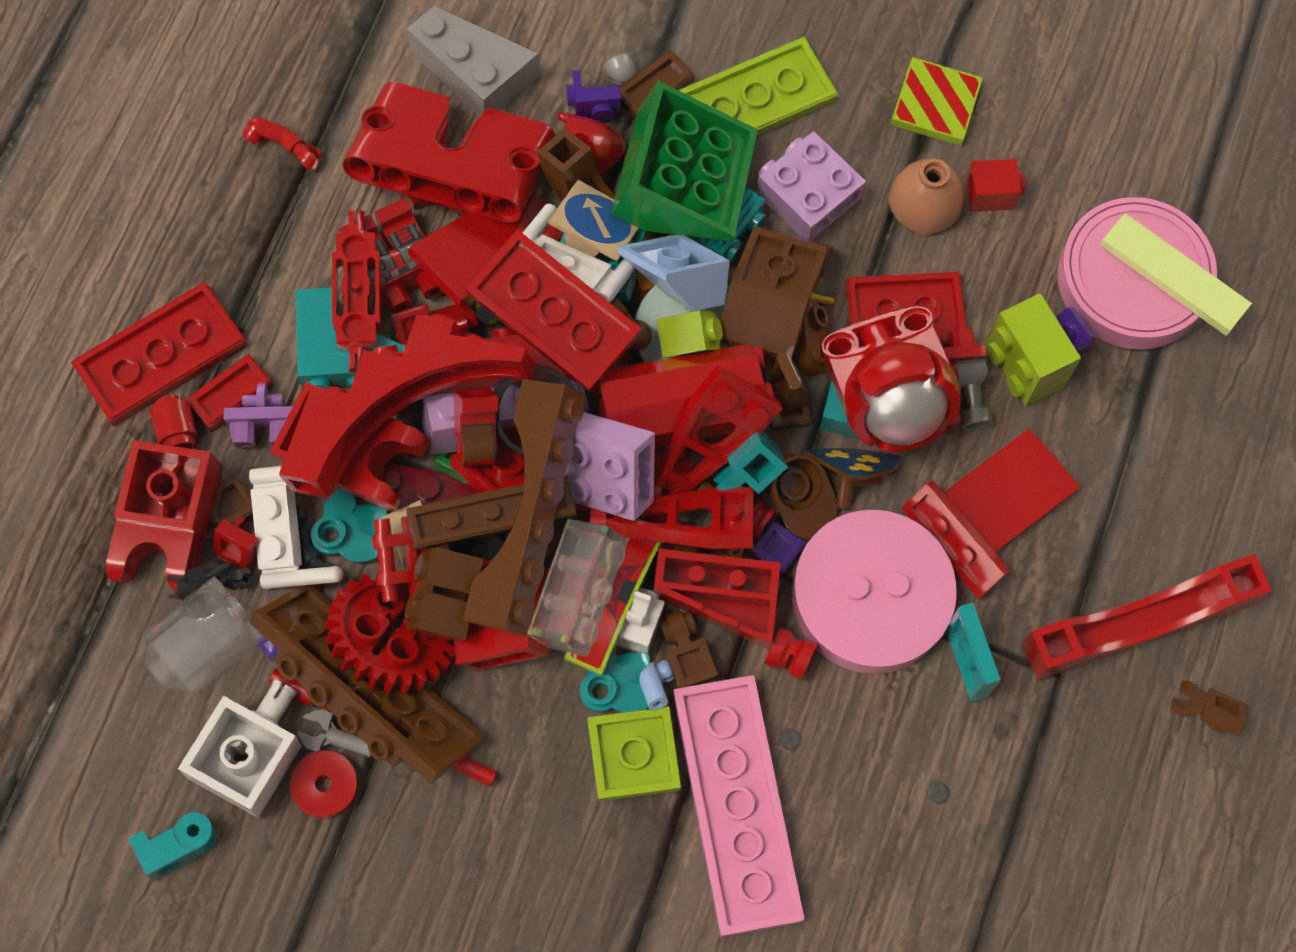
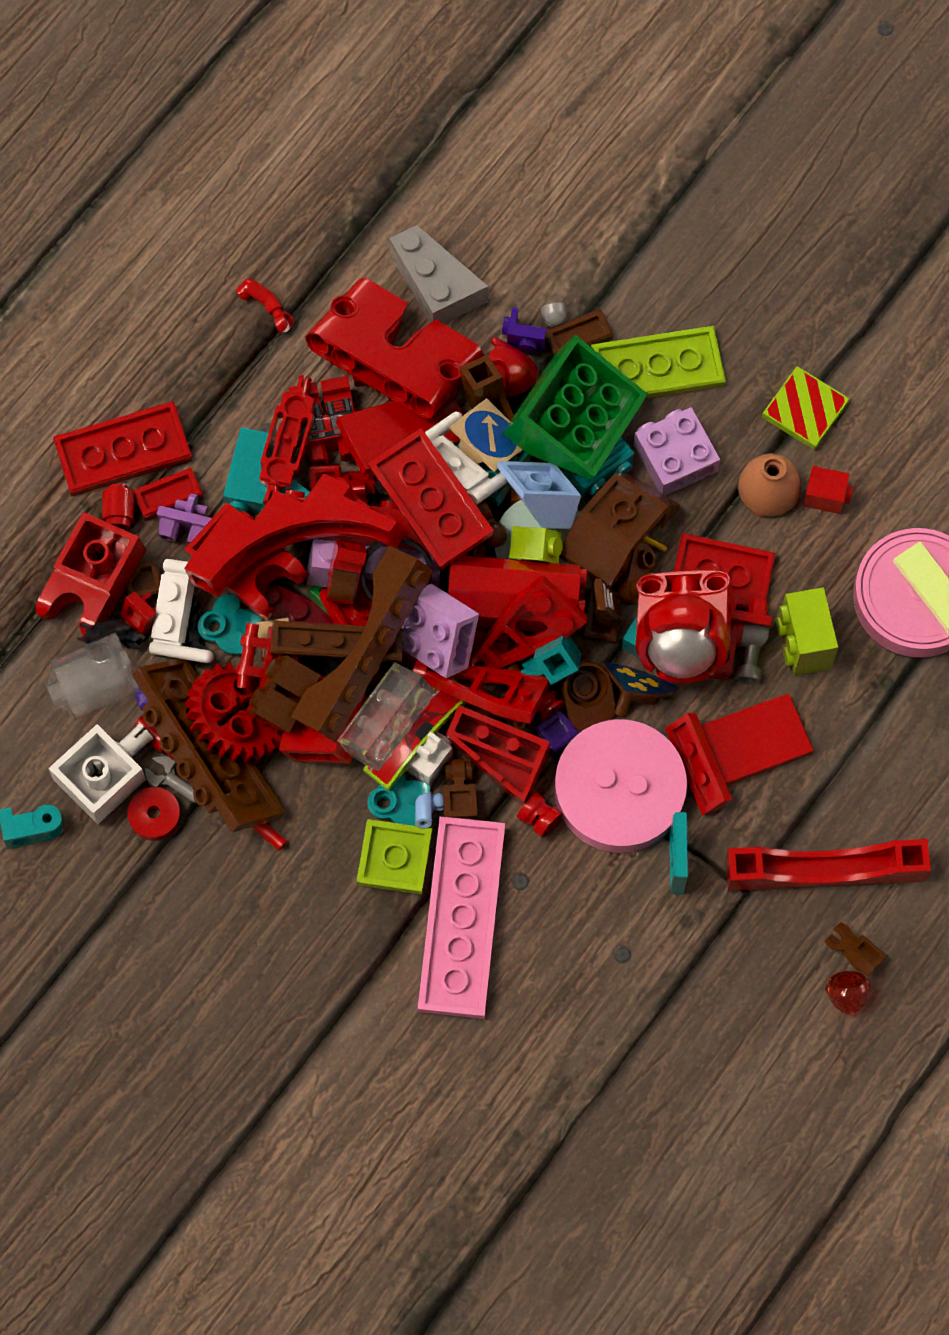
camera: 20 degrees right, 0 degrees up
(1076, 330) = (848, 627): dark purple bracket -> none
(1221, 760) = (848, 991): none -> clear red cone

